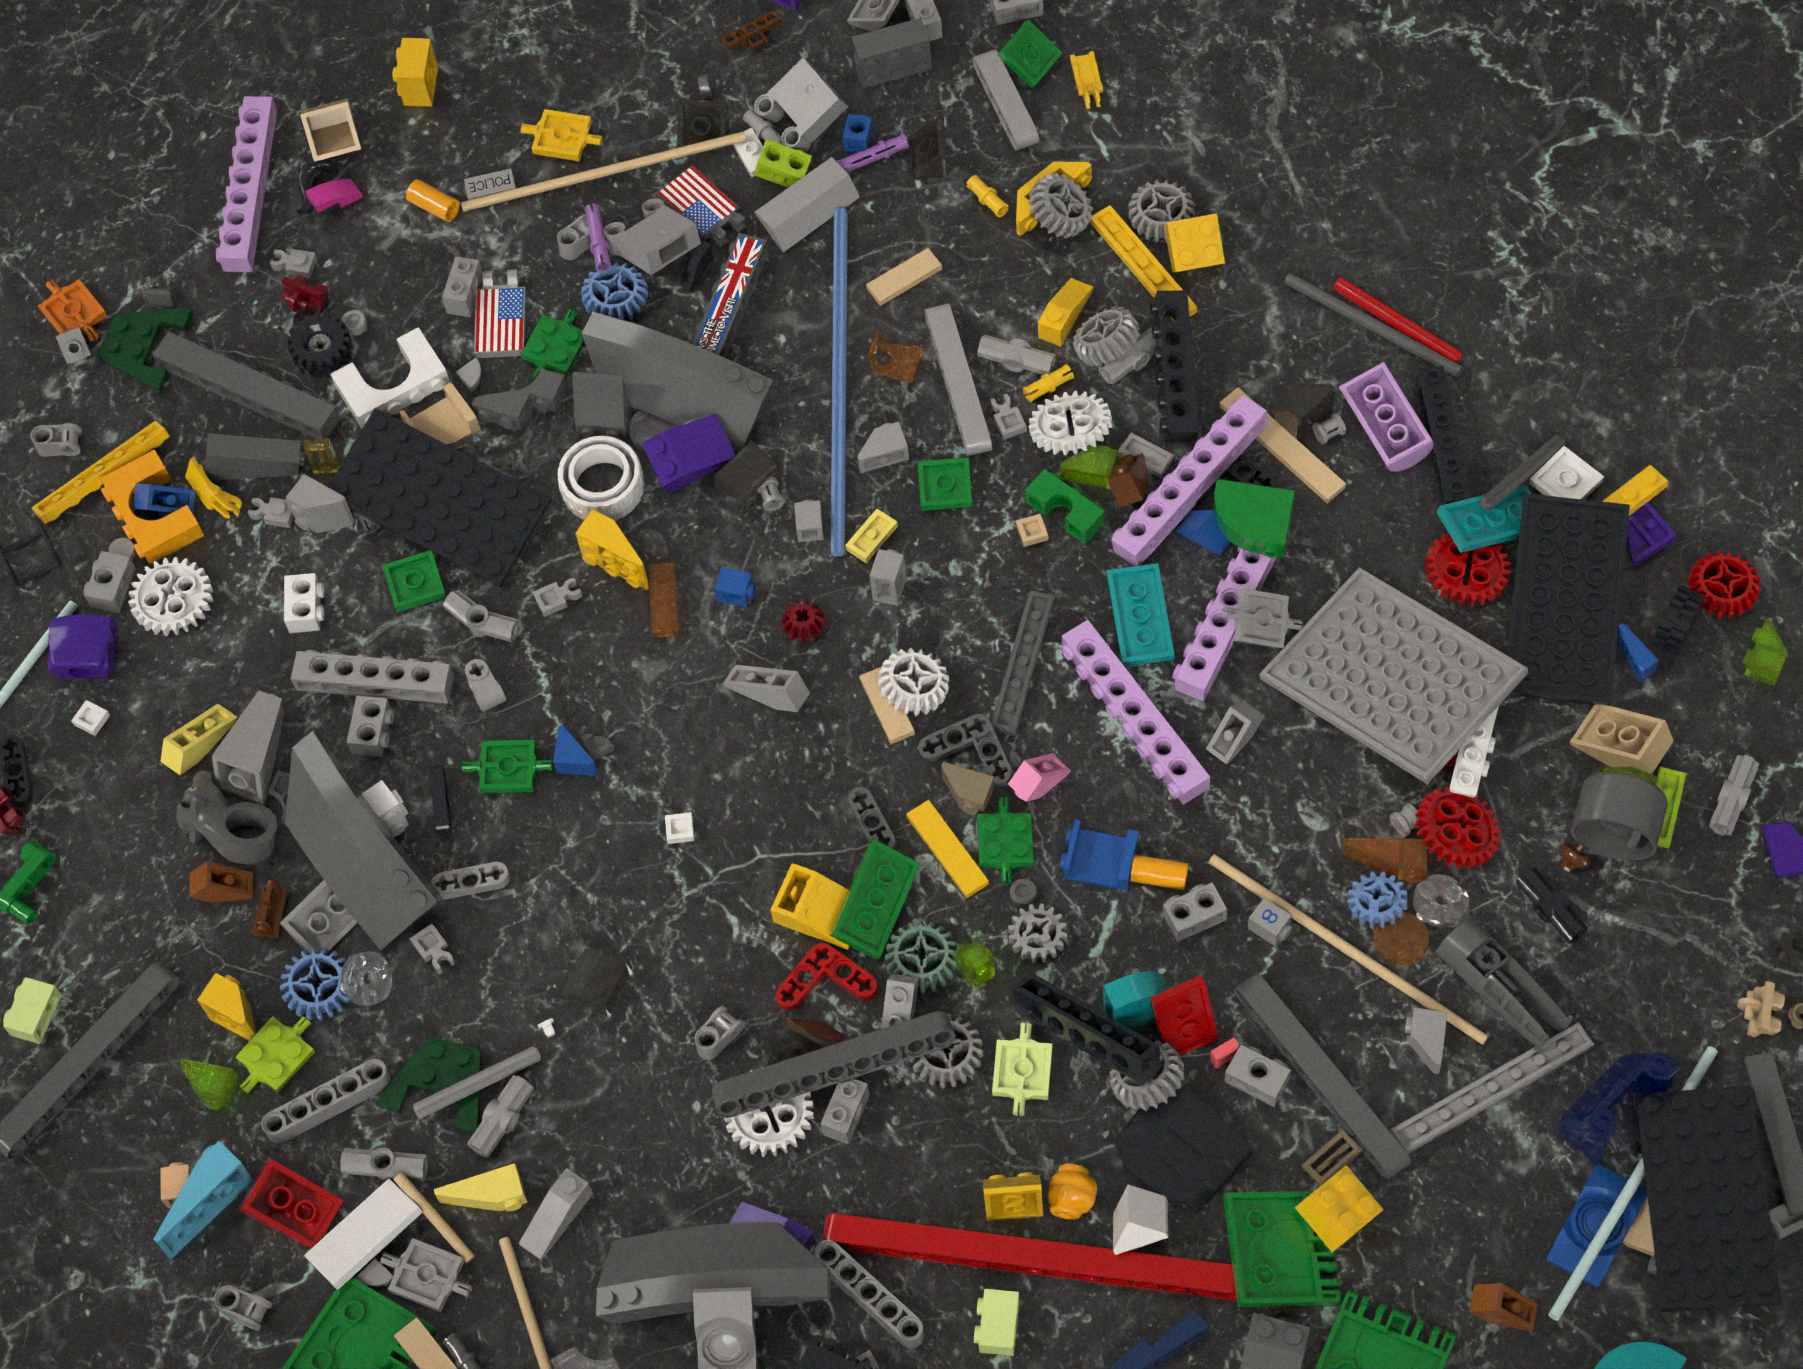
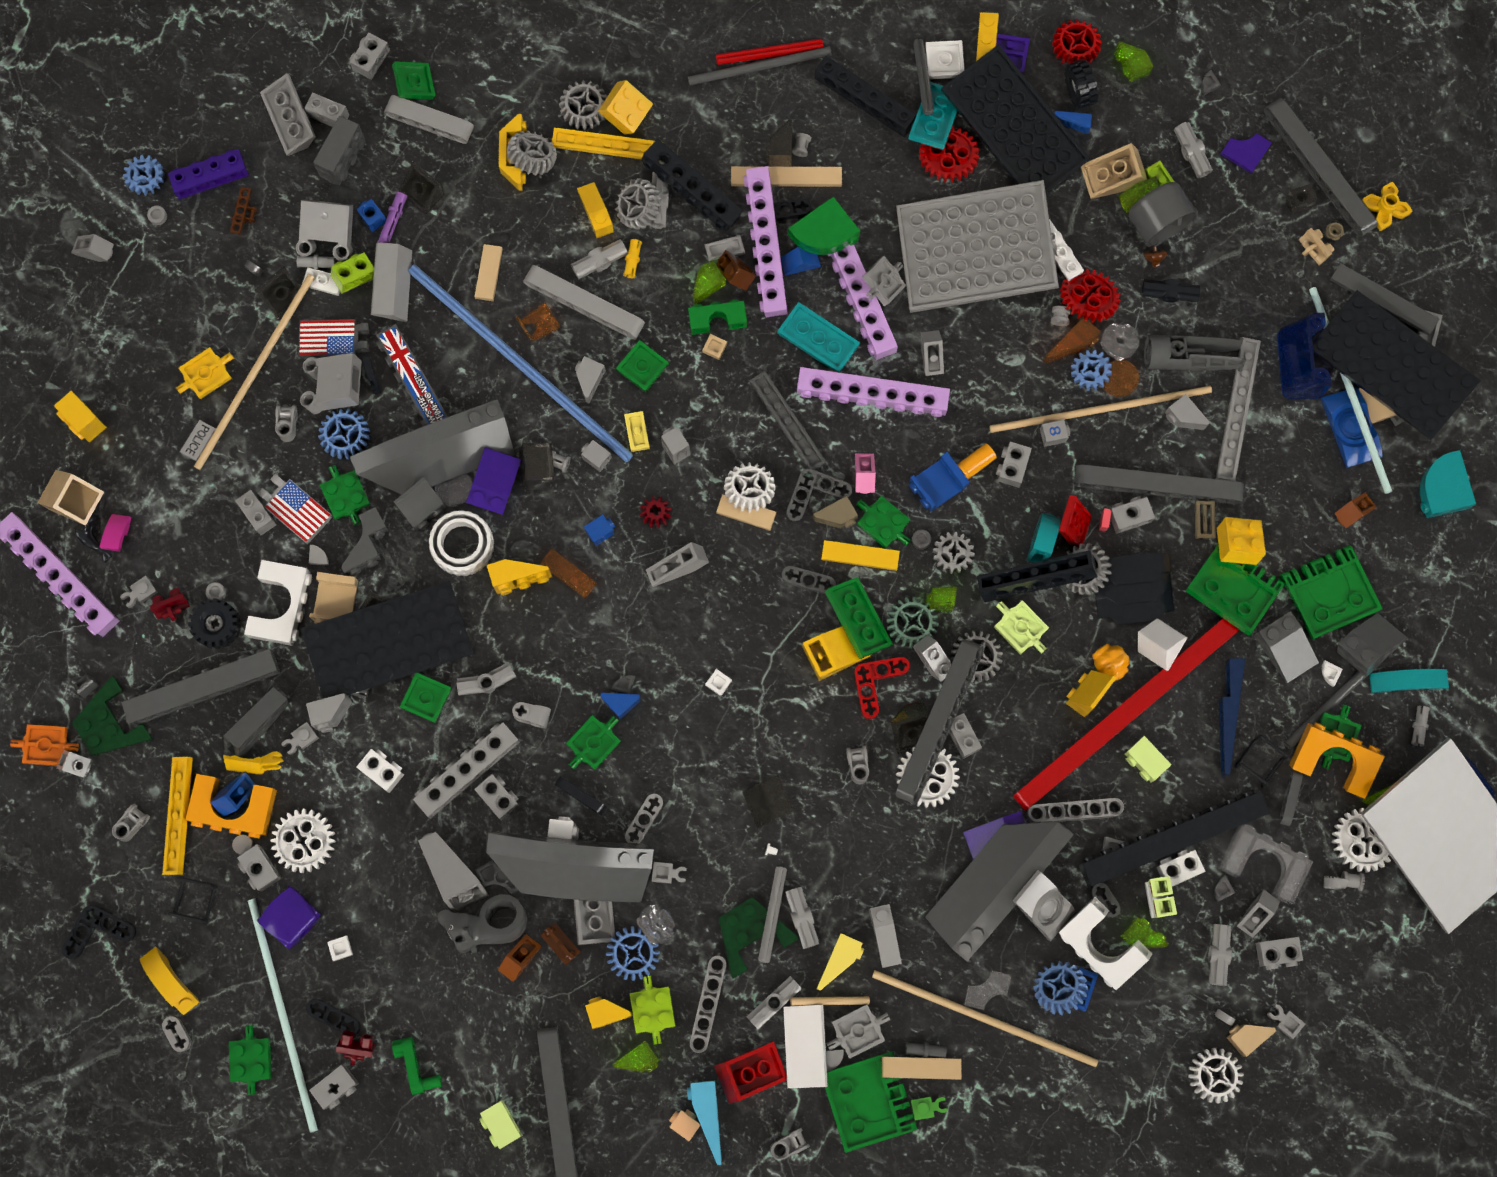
camera: 55 degrees left, 15 degrees up
(195, 739) = (412, 898): light yellow slope -> none
(320, 447) = (294, 682): clear yellow tile -> none
(432, 200) = (177, 481): light orange pin -> none
(553, 598) = (510, 631): light grey plate -> none
(599, 245) = (309, 416): medium lavender pin -> none
(987, 196) = (482, 184): yellow pin -> none
(1008, 420) = (635, 299): light grey plate -> none
(1087, 77) = (458, 66): yellow arm -> none
(1089, 418) = (661, 283): white gear -> none
(1388, 418) = (826, 110): lavender brick -> none

